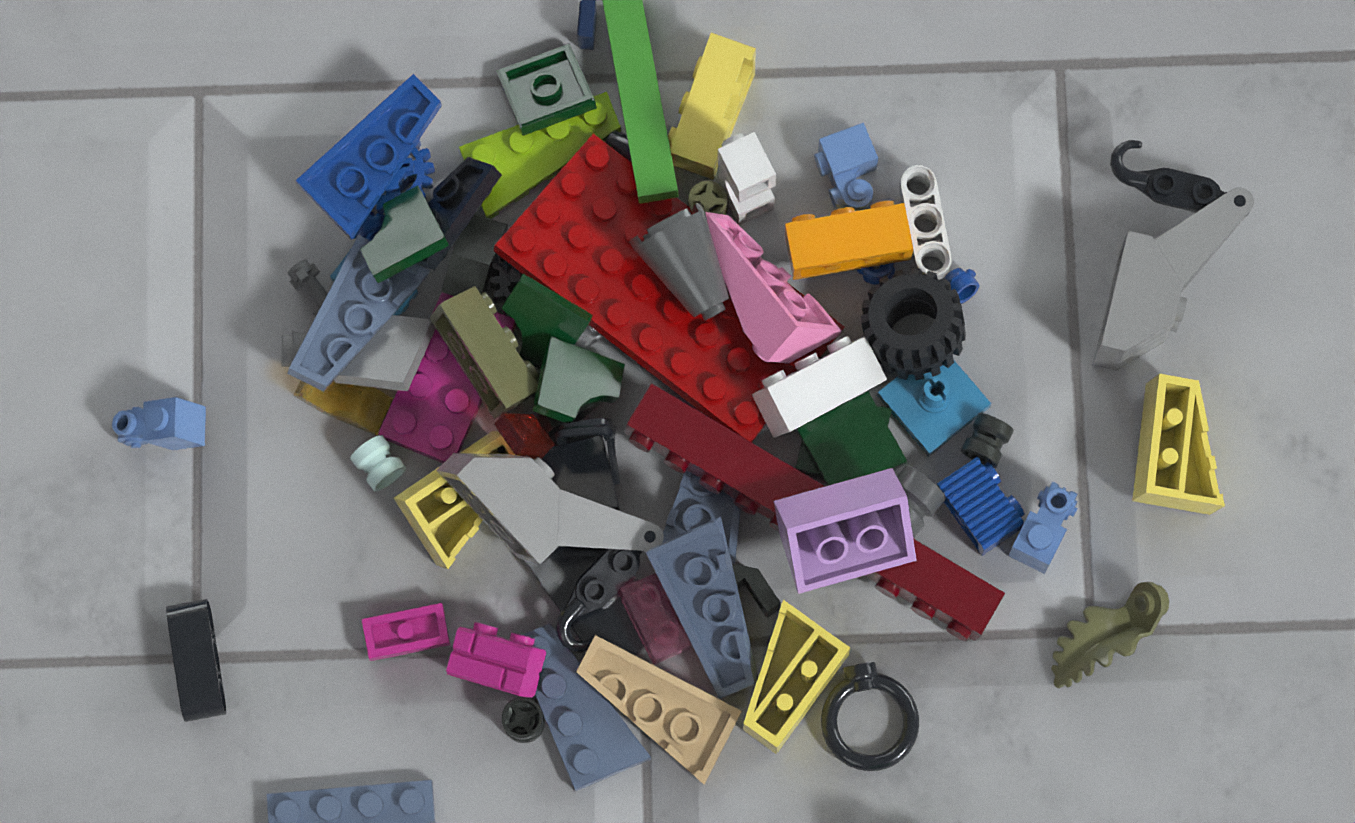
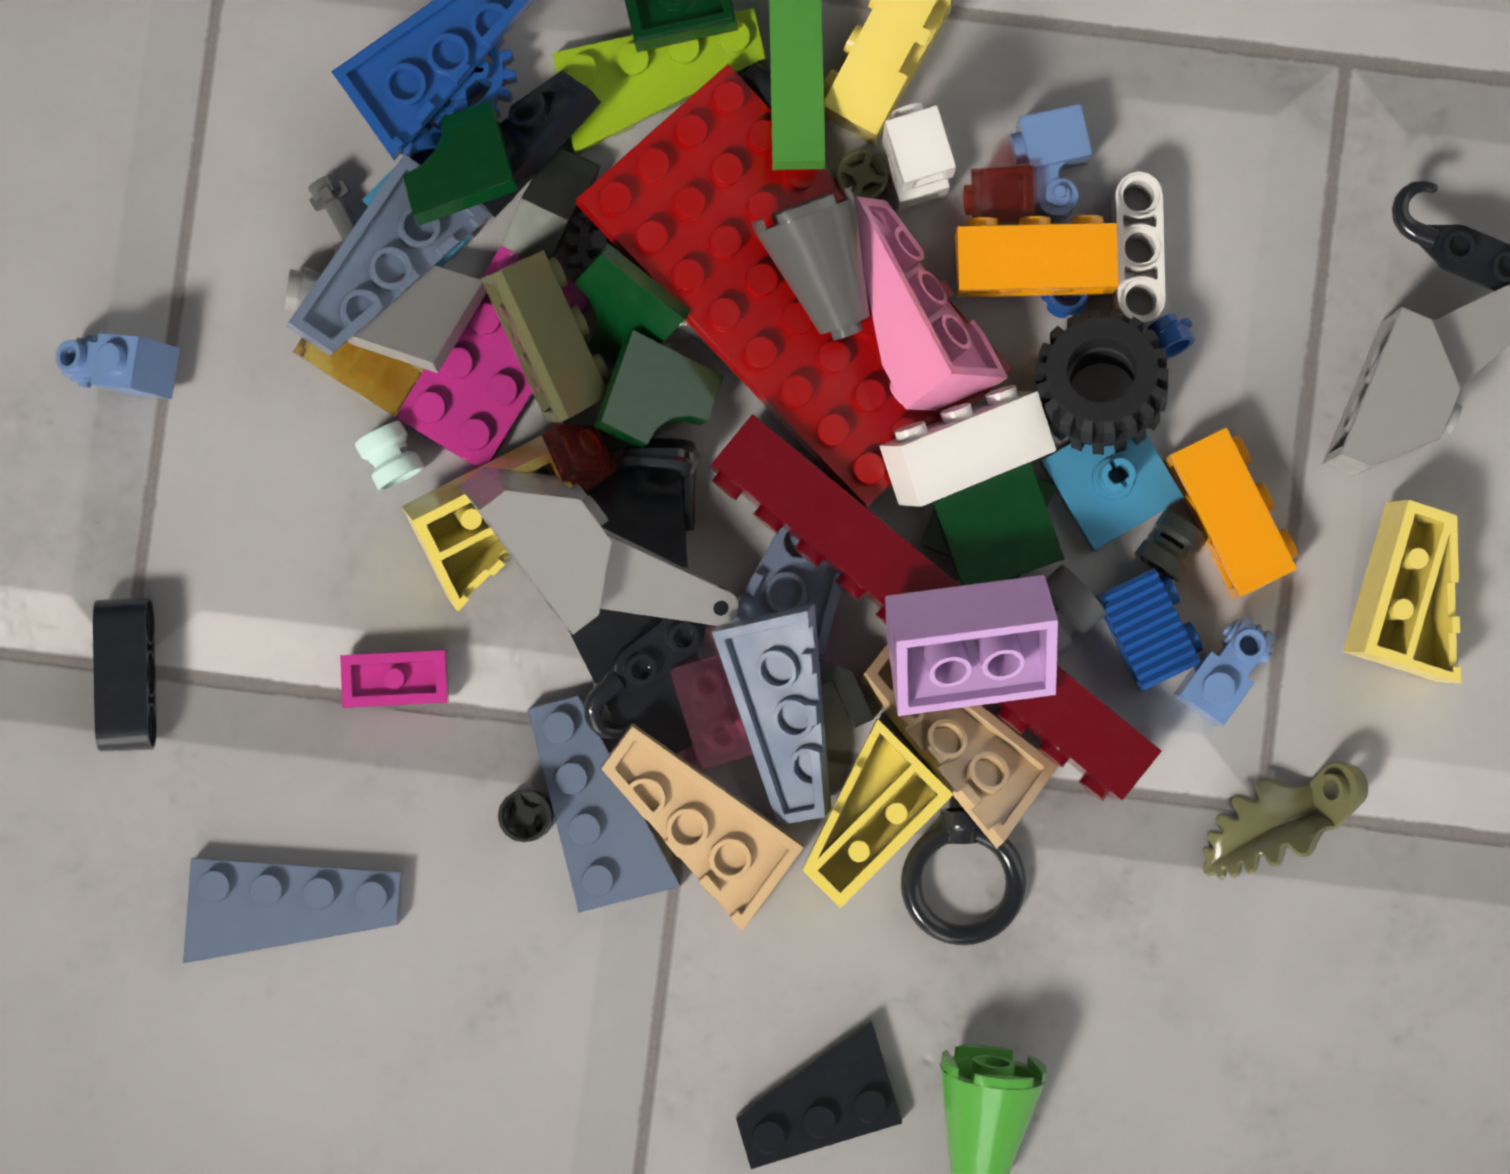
camera: 10 degrees right, 10 degrees up
(496, 661) = (502, 737): dark pink brick -> none
(815, 196) = (1002, 193): none -> clear red bracket
(866, 621) = (972, 753): none -> tan wing
(1029, 408) = (1232, 512): none -> light orange brick

